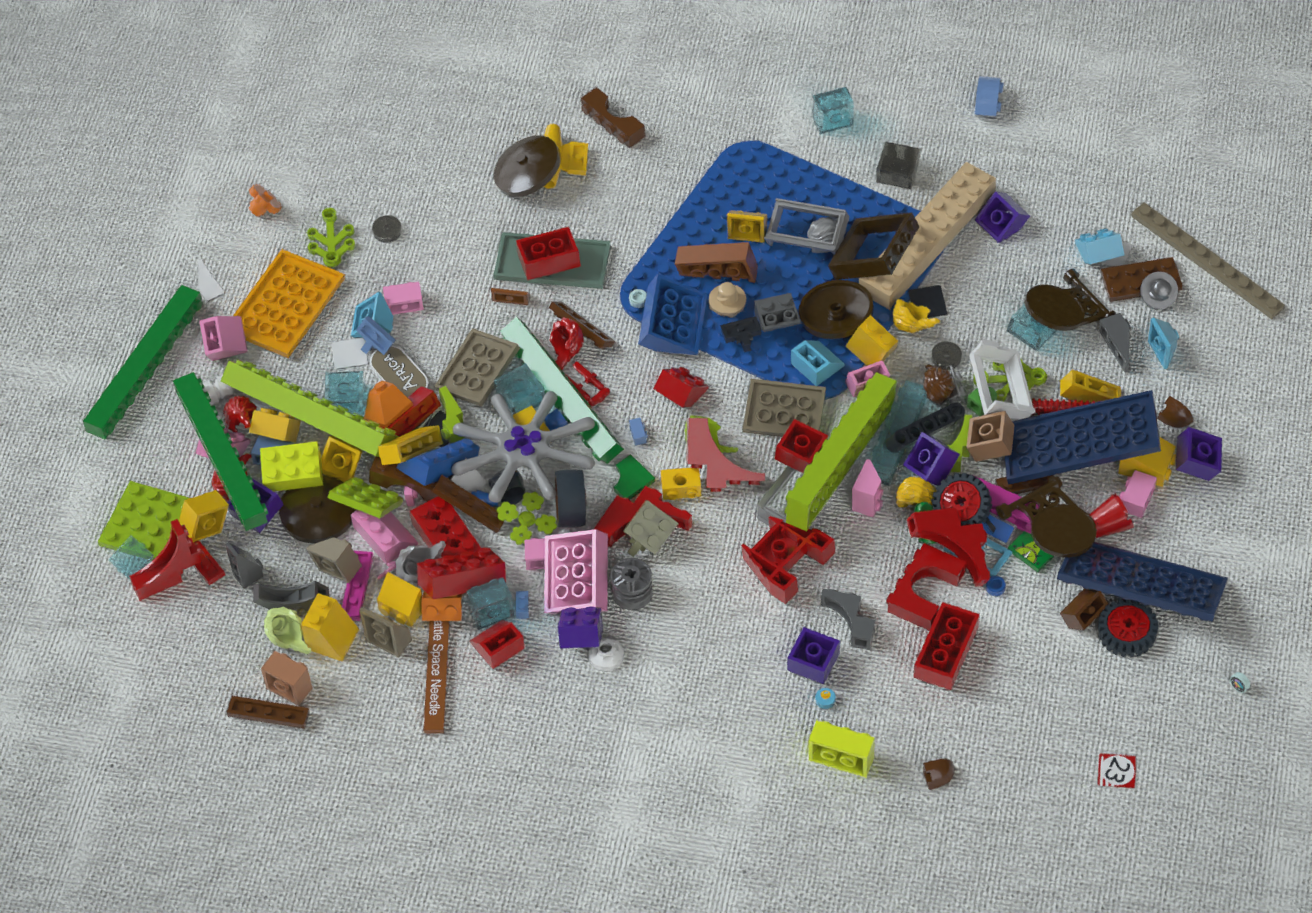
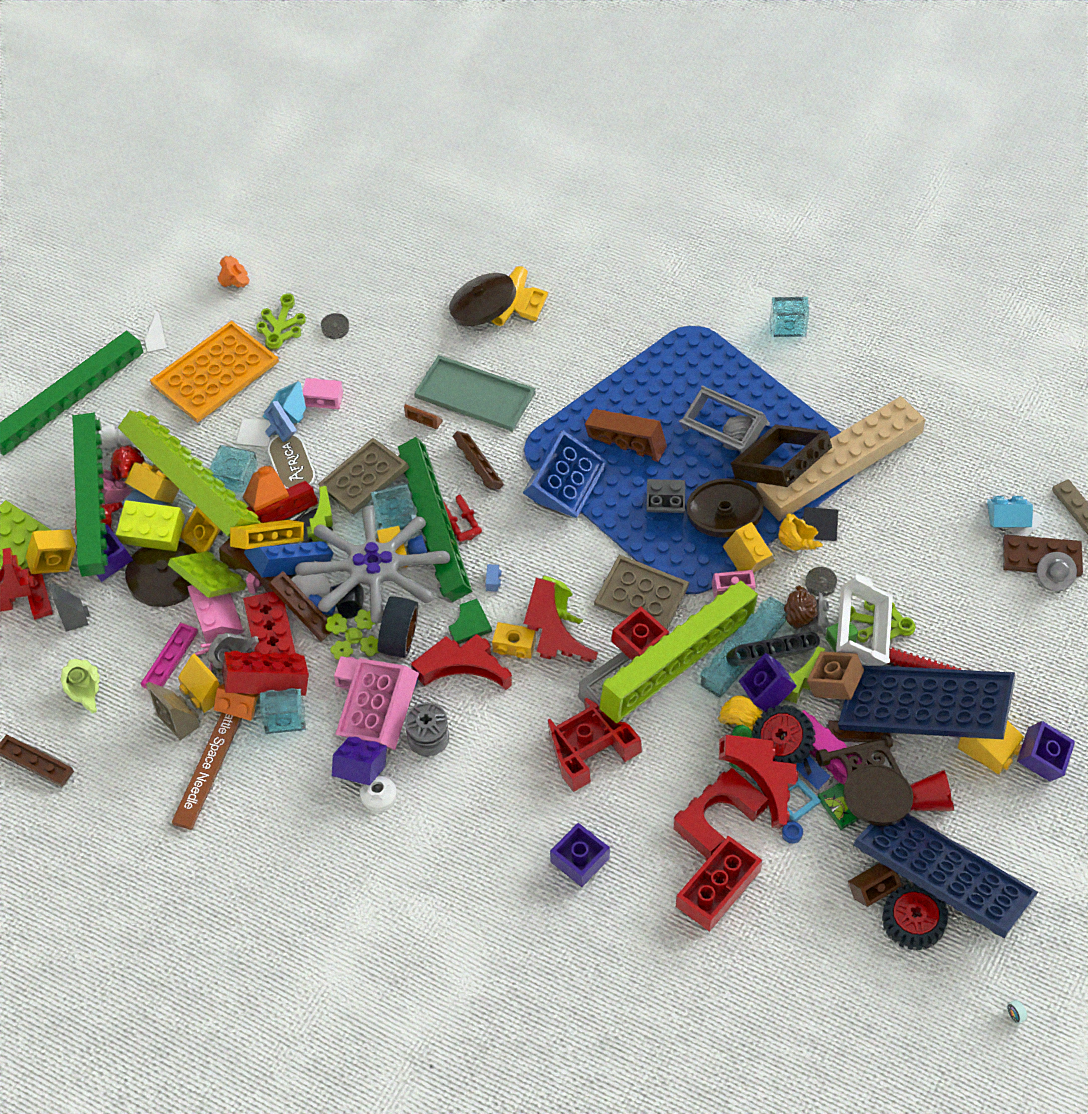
camera: 15 degrees right, 0 degrees up
(223, 337) = (142, 387): bright pink slope -> none
(286, 678) = (62, 731): nougat brick -> none
(290, 598) = (118, 657): dark grey arch -> none
(328, 628) = (120, 693): yellow slope -> none
(335, 558) = (155, 626): dark tan slope -> none
(498, 643) = (277, 753): red slope -> none
(522, 604) = (316, 720): medium blue piece -> none
(548, 253) = (470, 384): red brick -> none
(566, 339) = (457, 472): red hair -> none
(626, 129) = (589, 288): reddish brown arch -> none
(637, 298) = (539, 448): light aqua tile -> none
(649, 529) = (463, 678): olive hinge -> none
(680, 386) = (549, 544): red slope -> none
(727, 299) = (624, 471): tan plate -> none
(741, 332) = (626, 506): black hinge -> none
(746, 226) = (667, 405): yellow slope -> none
(815, 361) = (687, 553): medium azure slope -> none
(825, 698) = (578, 903): medium azure tile -> none
(841, 748) = (572, 963): neon yellow brick -> none
(849, 607) = (635, 812): dark grey arch -> none
(867, 491) = (692, 698): bright pink slope -> none
(898, 165) = (834, 384): clear smoke slope -> none
(938, 772) = (665, 1018): reddish brown brick -> none
(988, 95) = (944, 339): medium blue brick -> none
(1002, 216) = (921, 458): dark purple slope -> none
(1028, 330) = (918, 572): clear light blue brick -> none
(1061, 307) = (952, 564): dark brown piece -> none
(1085, 387) = (950, 651): yellow slope -> none
(1116, 335) = (998, 605): dark grey slope -> none
(1116, 770) = (855, 1071): sticker -> none
(1138, 493) = (970, 775): bright pink brick -> none
(1163, 340) = (1045, 623): medium azure slope -> none
(1175, 414) = (1035, 702): reddish brown brick -> none

